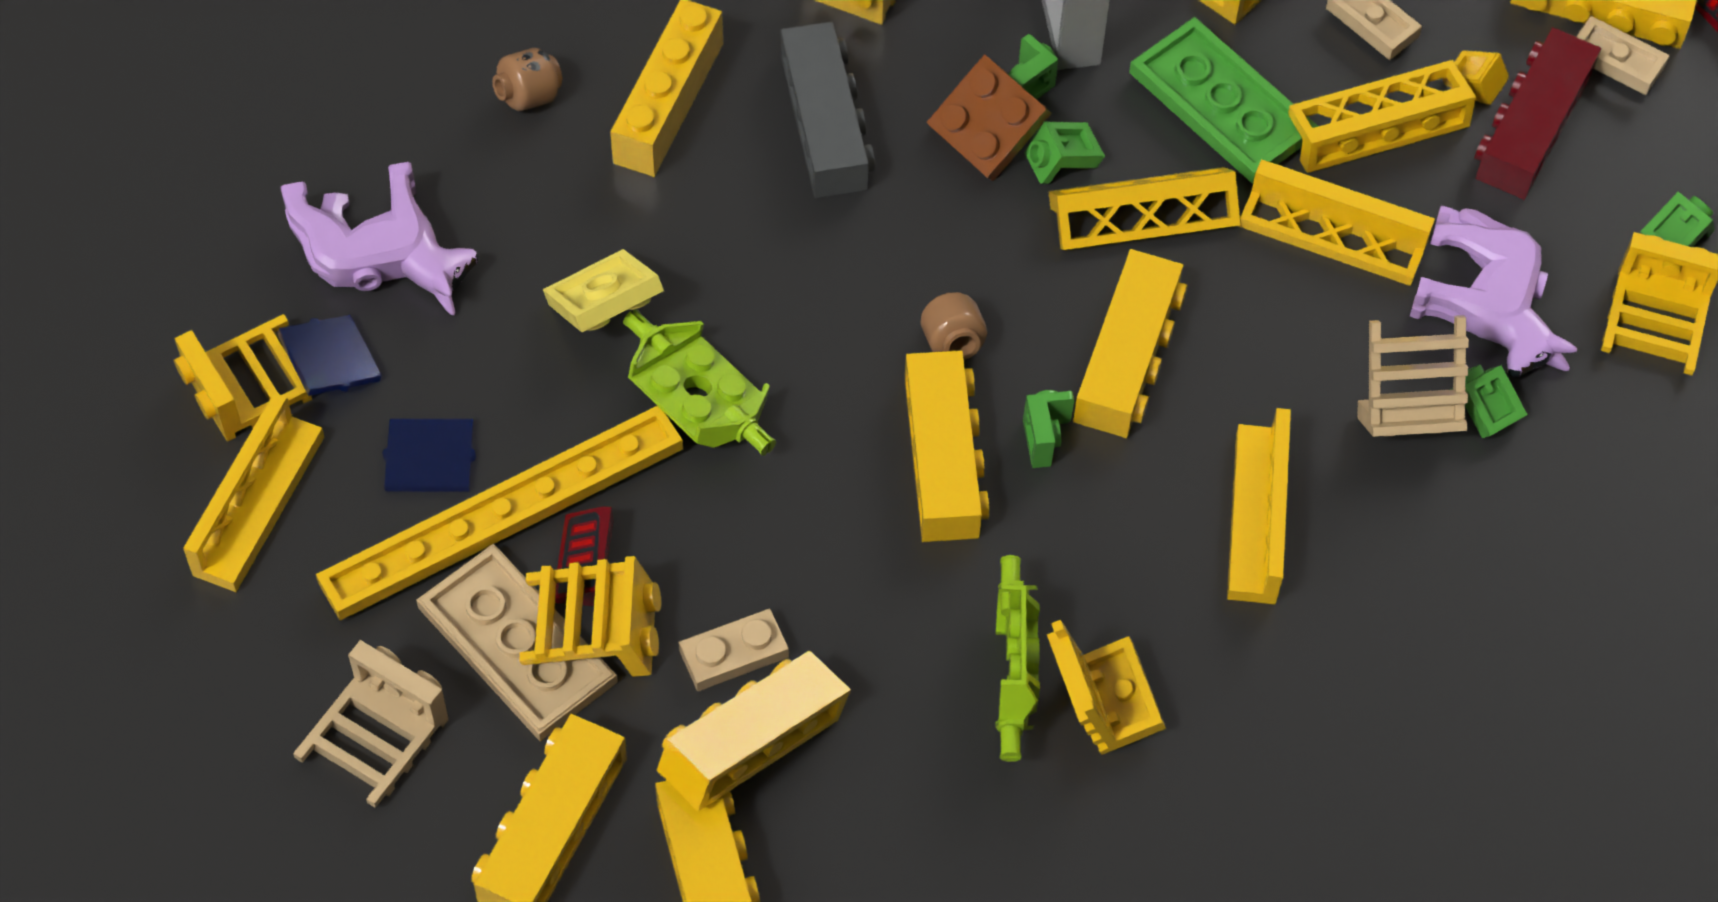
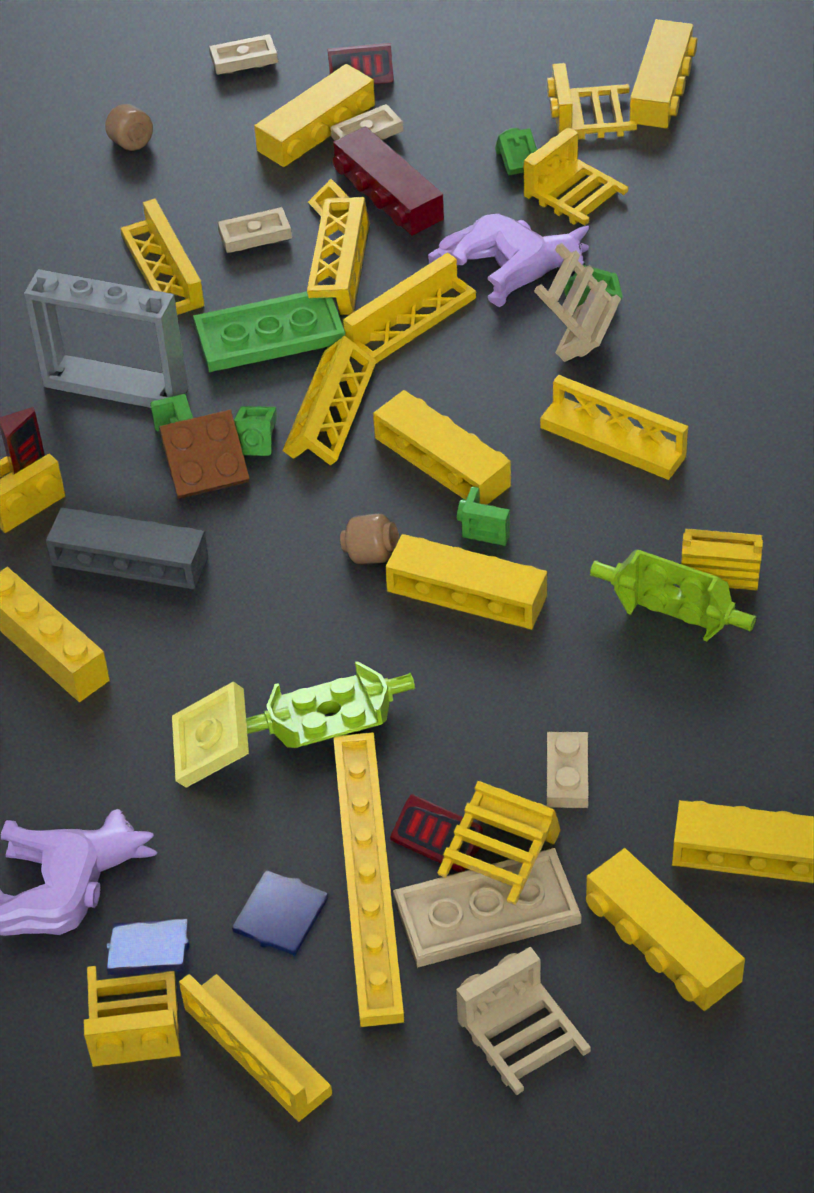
camera: 60 degrees left, 10 degrees down
(752, 729) = (661, 763): yellow brick -> none

